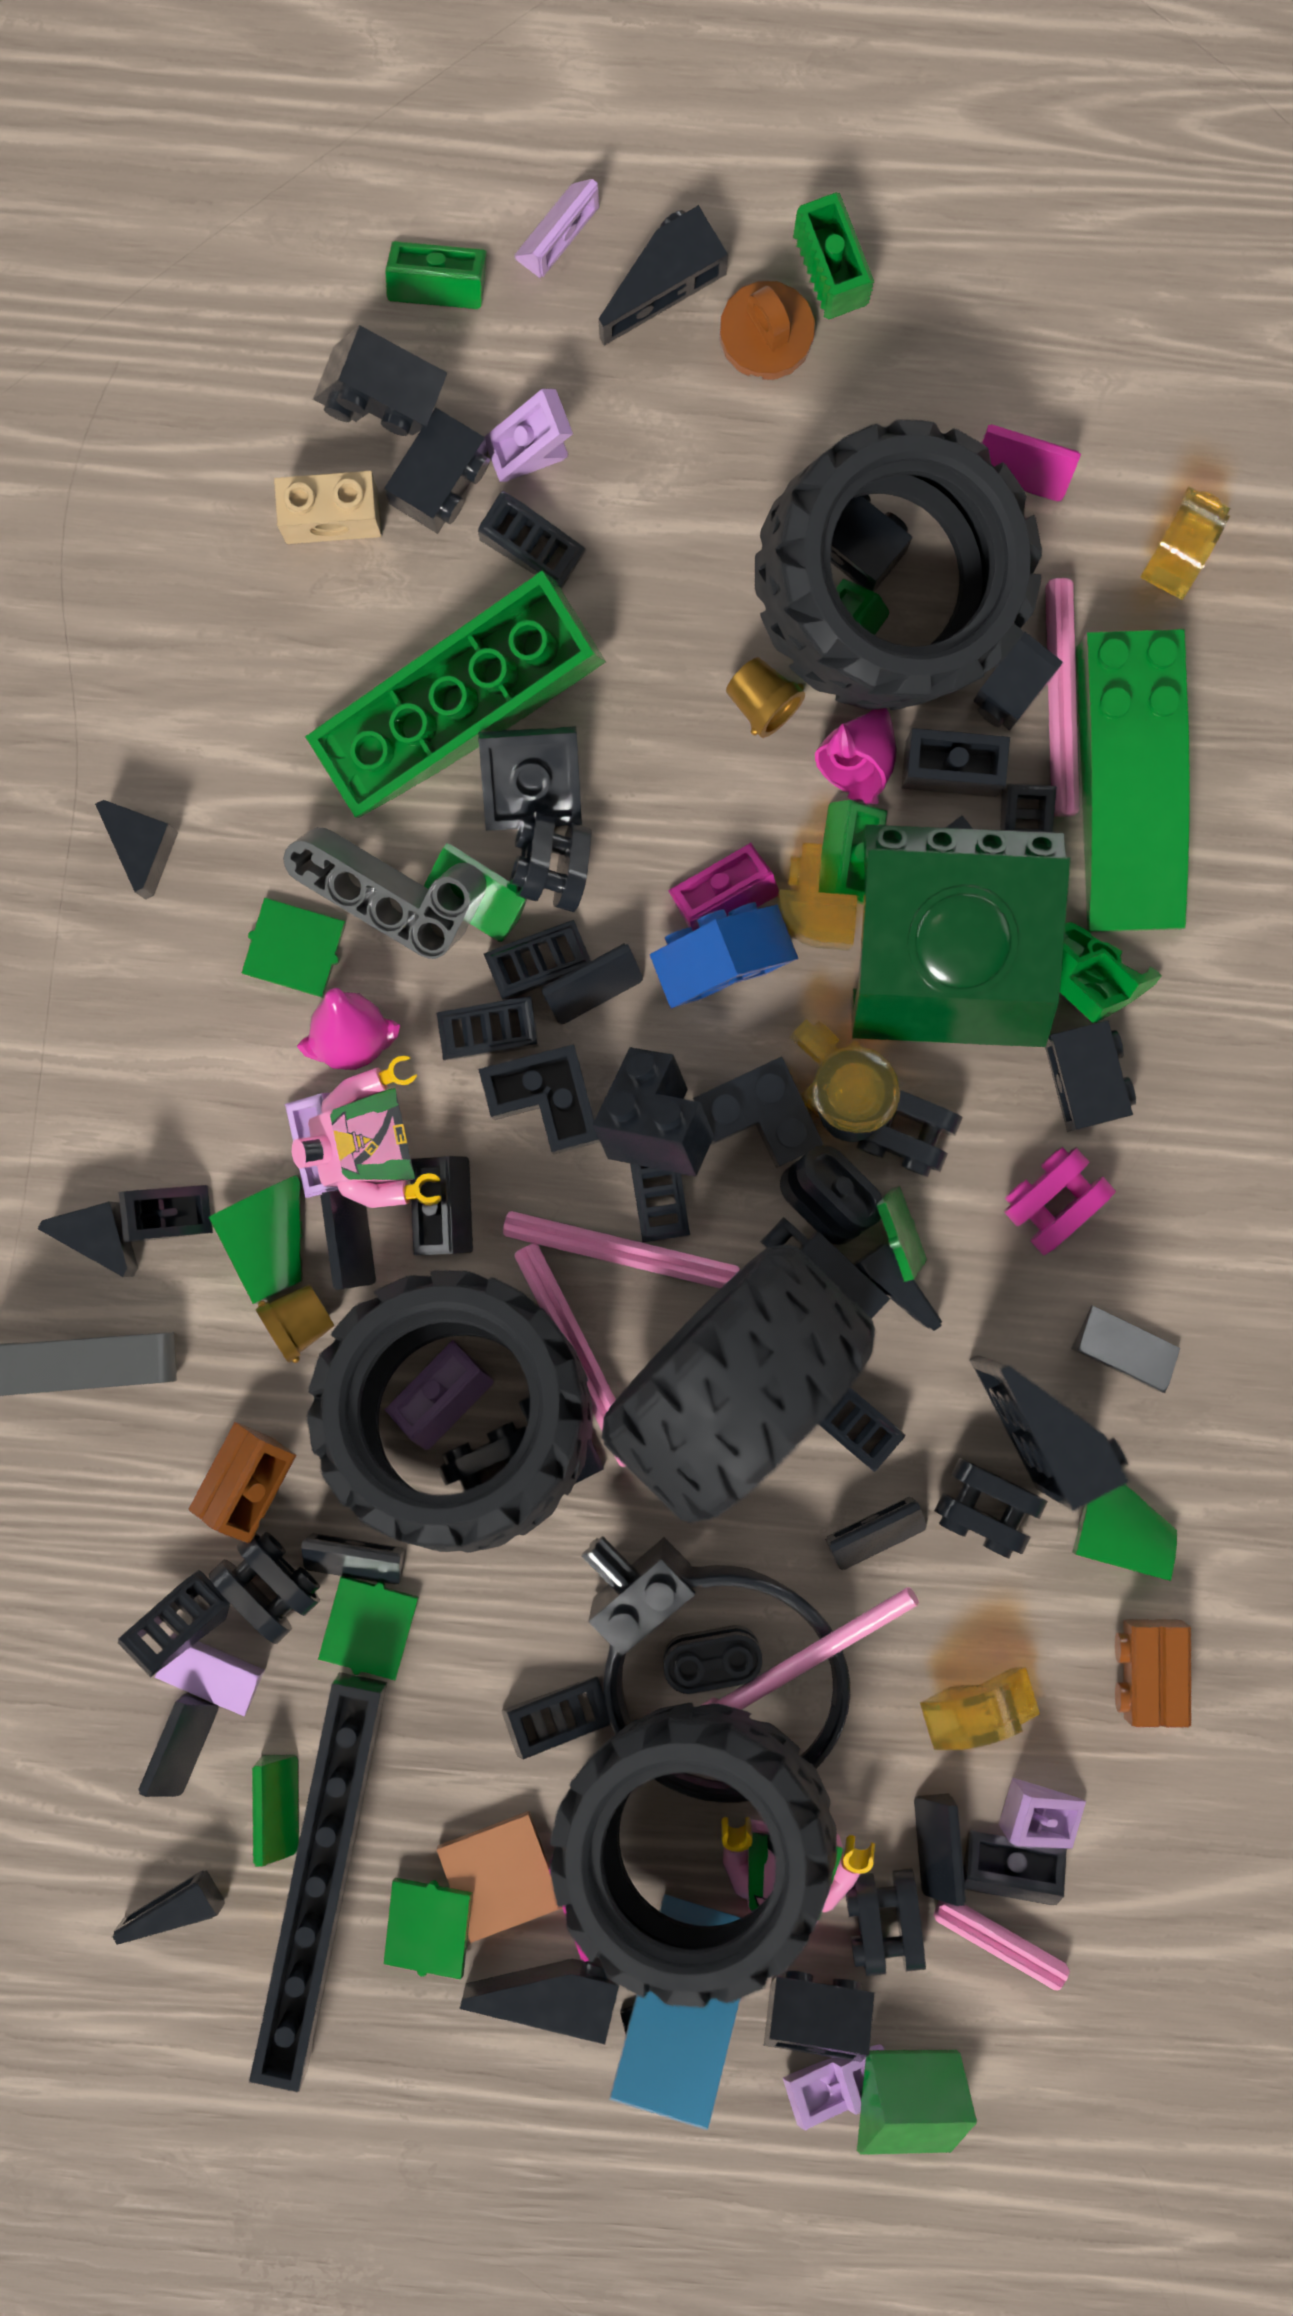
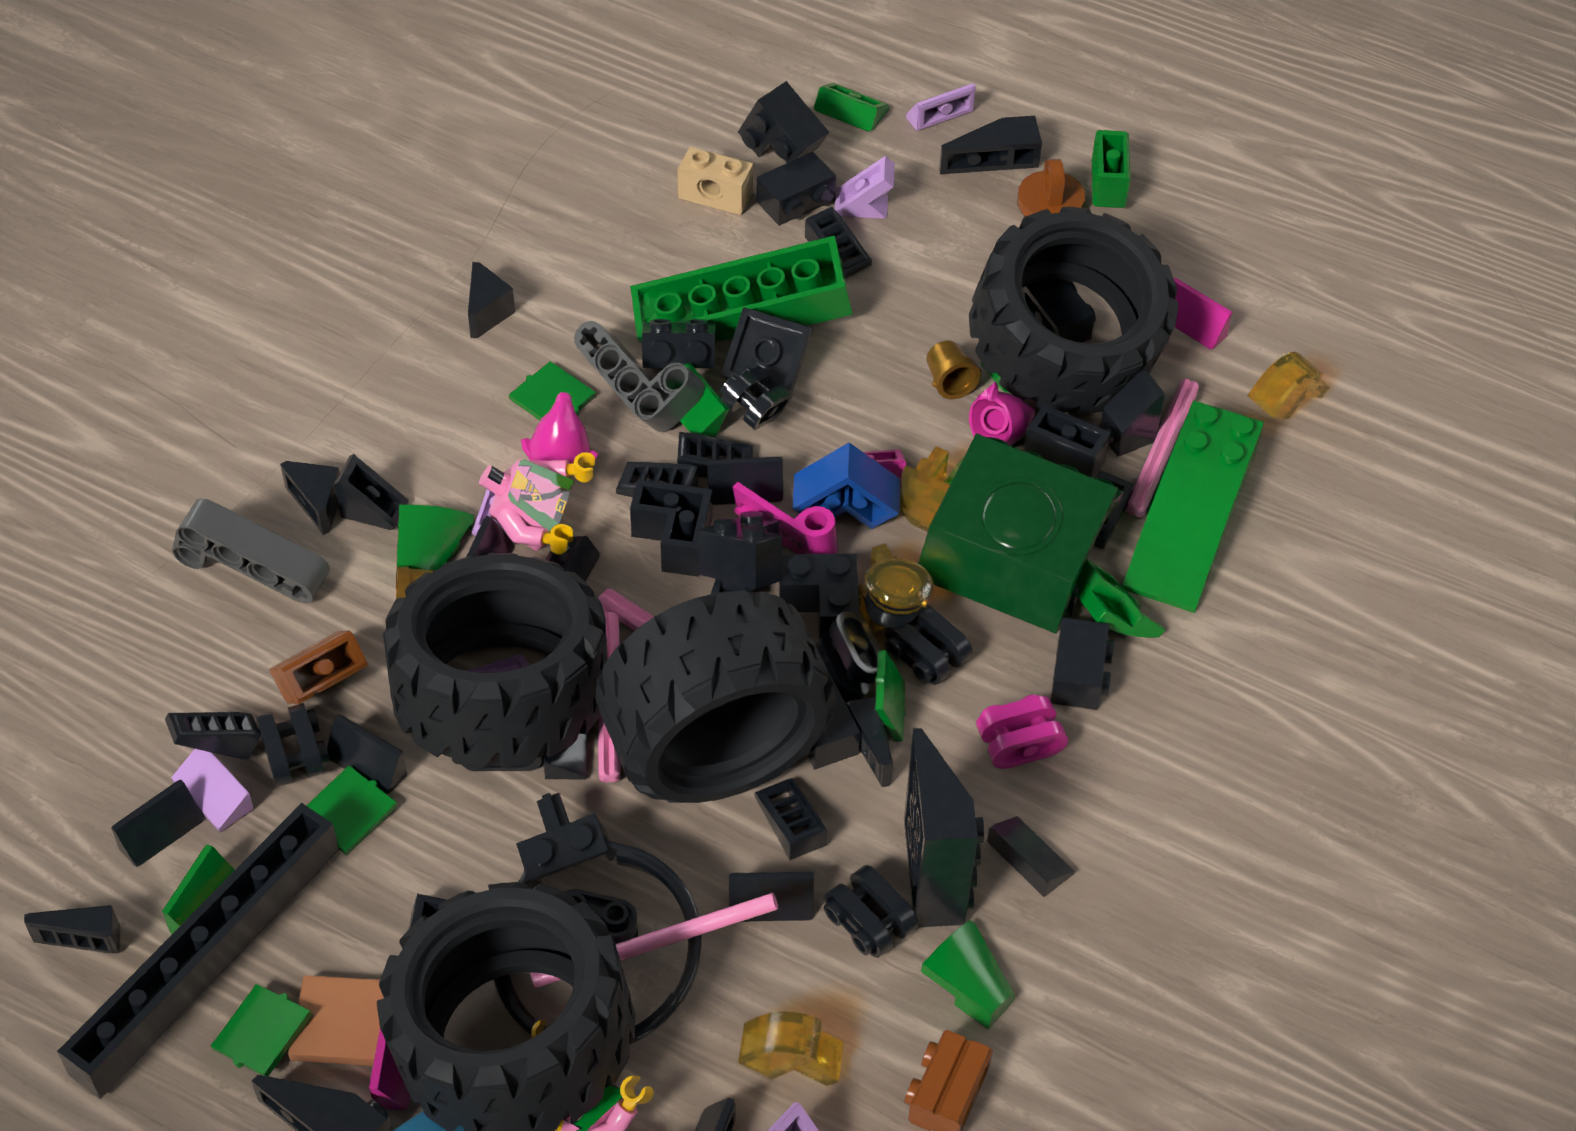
camera: 25 degrees right, 35 degrees down
(417, 815) = (678, 342): none -> black brick
(714, 1038) = (808, 533): none -> dark pink door

